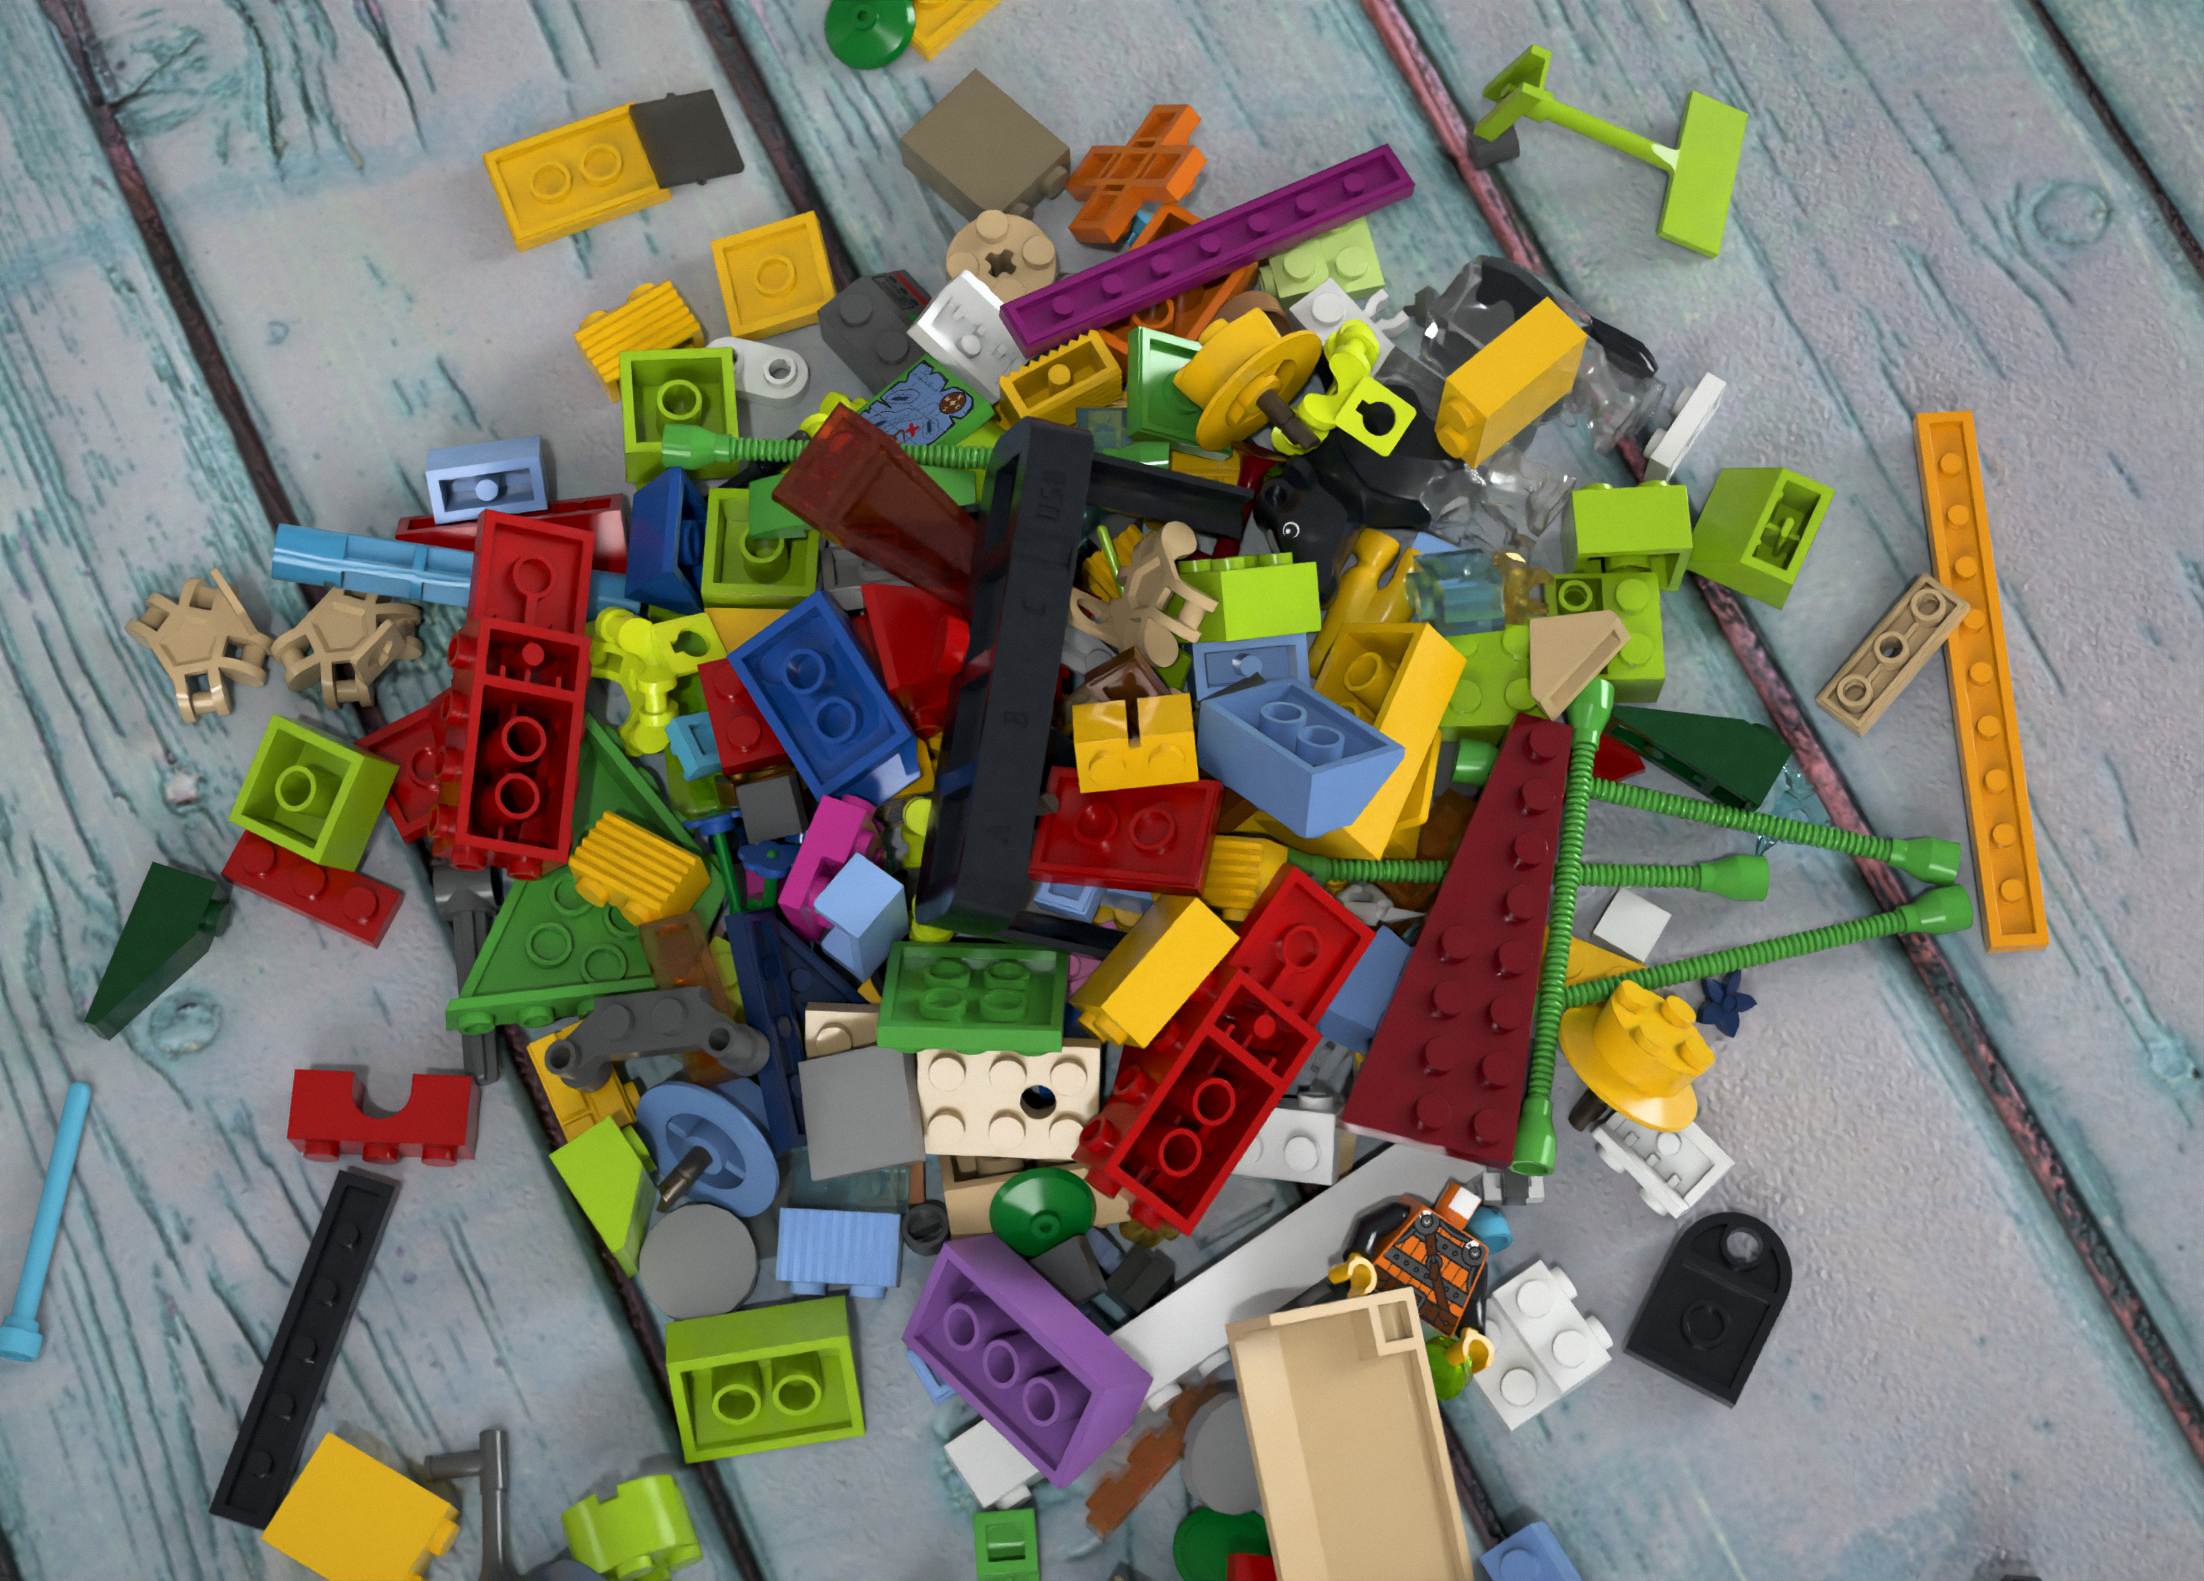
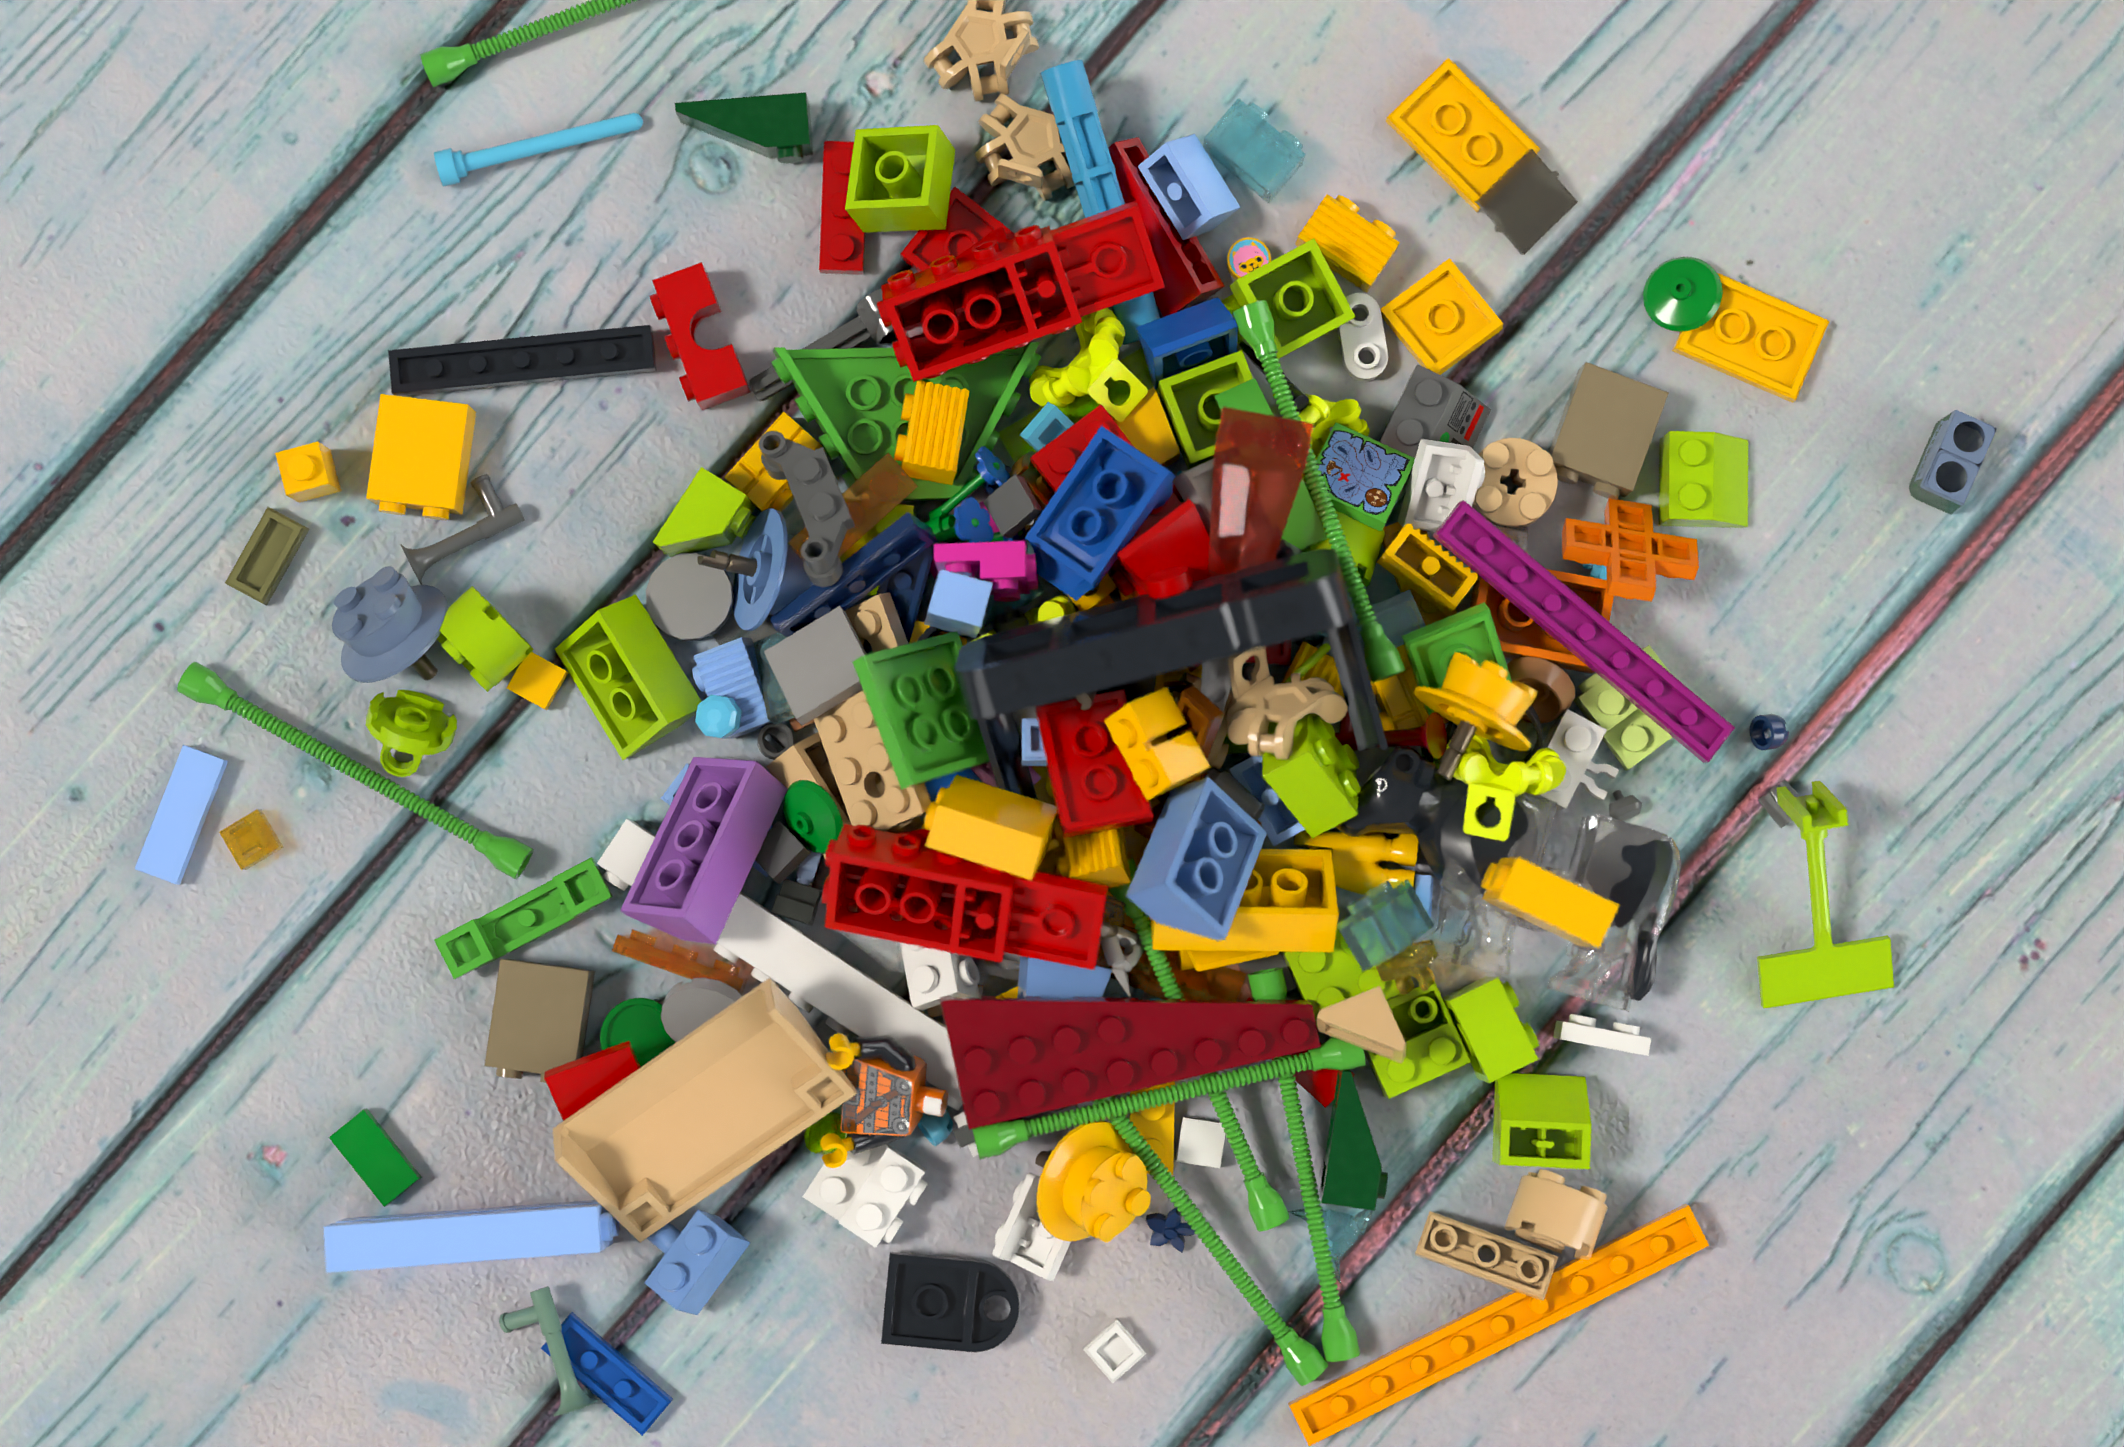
camera: 65 degrees right, 15 degrees up
(482, 395) = (1254, 149): none -> clear light blue brick
(602, 457) = (1246, 256): none -> tile
(717, 1500) = (537, 680): none -> yellow tile
(866, 1274) = (718, 716): none -> medium azure tile
(1087, 84) = (1703, 480): none -> lime slope
(1393, 126) = (1759, 734): none -> dark blue hinge
(1848, 1130) = (1114, 1350): none -> white tile
(1874, 552) = (1557, 1214): none -> tan brick

